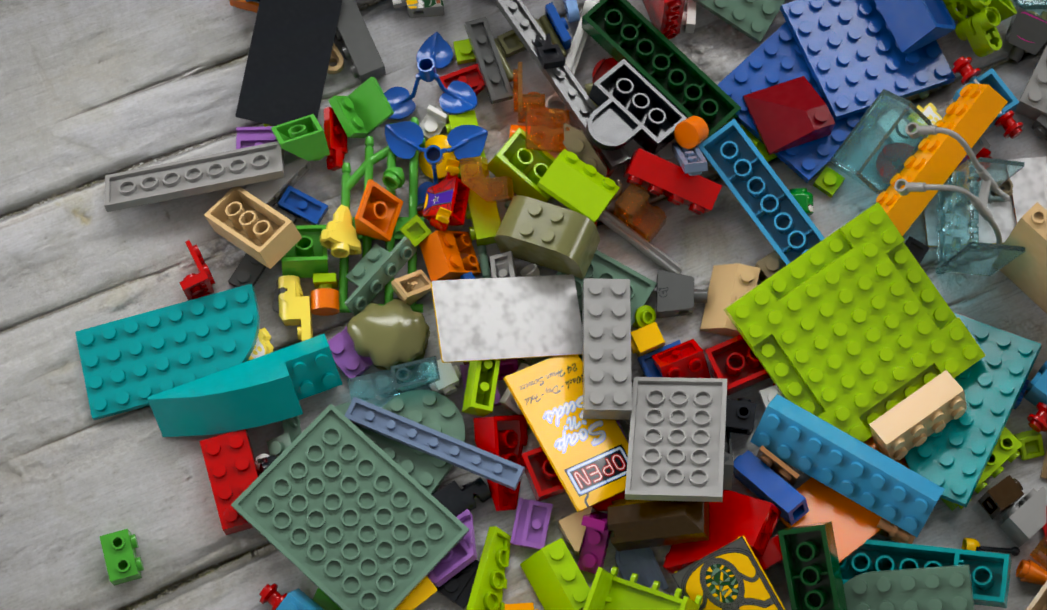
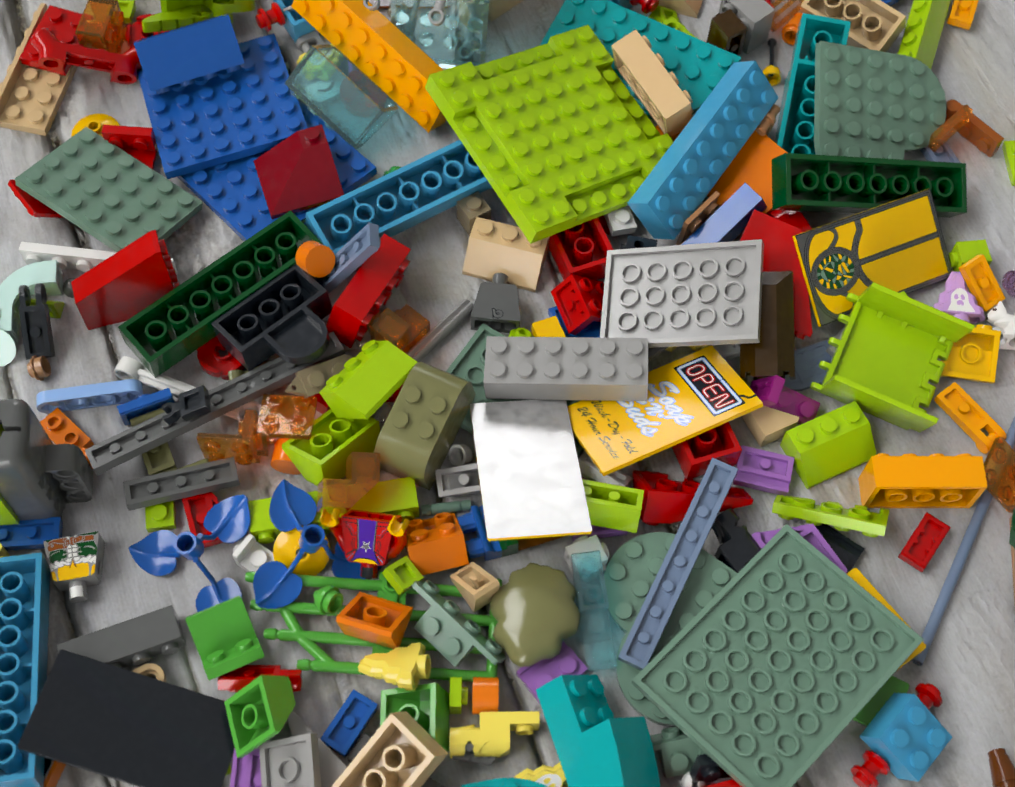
camera: 90 degrees left, 10 degrees down
(829, 181) = (377, 155): lime plate -> none

